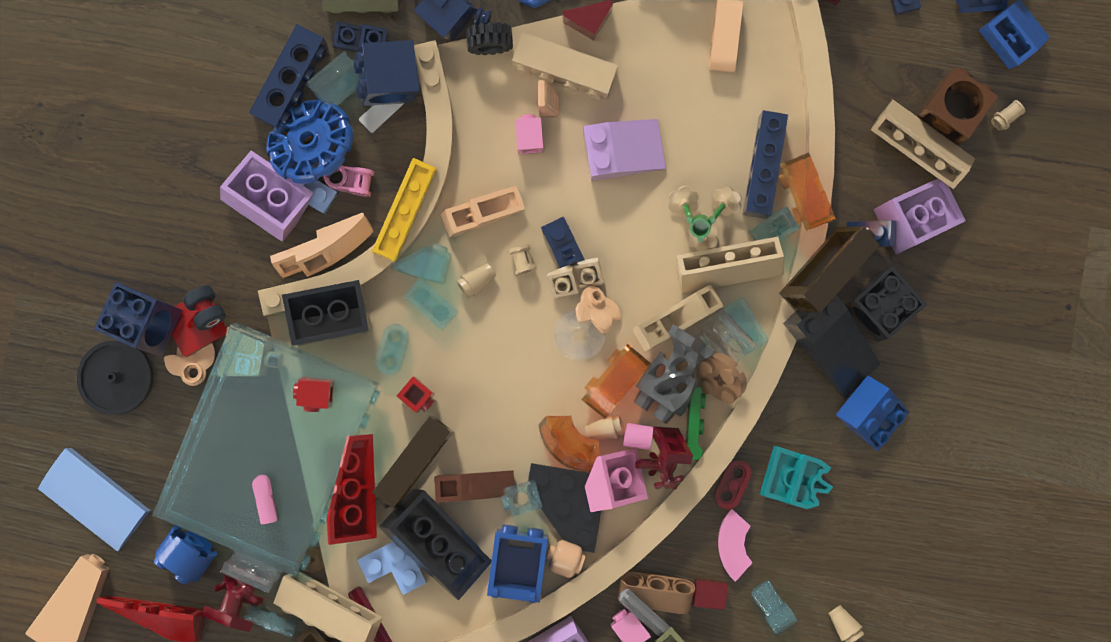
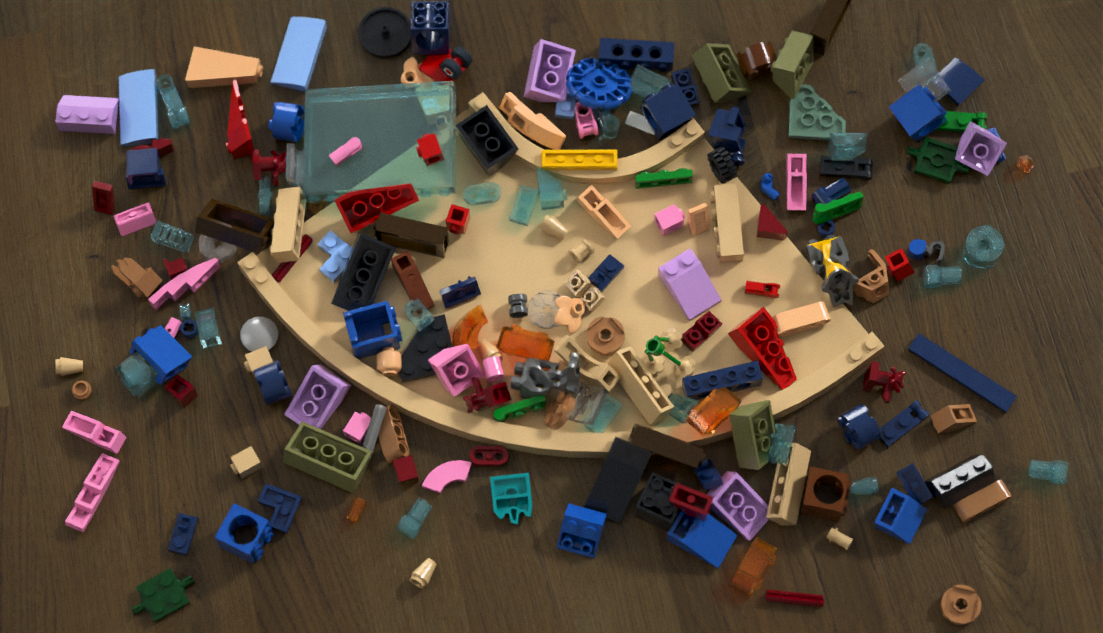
camera: 70 degrees right, 15 degrees down
(359, 154) = (605, 119): none -> clear light blue piece
(471, 117) = (663, 178): none -> green plate
(512, 432) = (460, 292): none -> dark blue plate
(555, 365) = (518, 305): none -> dark grey wheel
(651, 266) = (603, 346): none -> medium nougat plate
(664, 67) = (758, 288): none -> red bar
(687, 160) = (701, 331): none -> dark red slope
(735, 96) = (760, 341): none -> red wedge
(851, 157) = (752, 433): none -> olive slope
(874, 129) = (781, 443): none -> clear light blue plate
(890, 29) = (858, 427): none -> dark blue brick
(915, 268) = (691, 501): none -> dark red slope
(942, 273) = (704, 539): none -> blue slope
(959, 54) = (865, 486): none -> clear light blue cone
(1011, 238) = (753, 566): none -> clear orange brick
(1056, 199) = (794, 598): none -> dark red axle

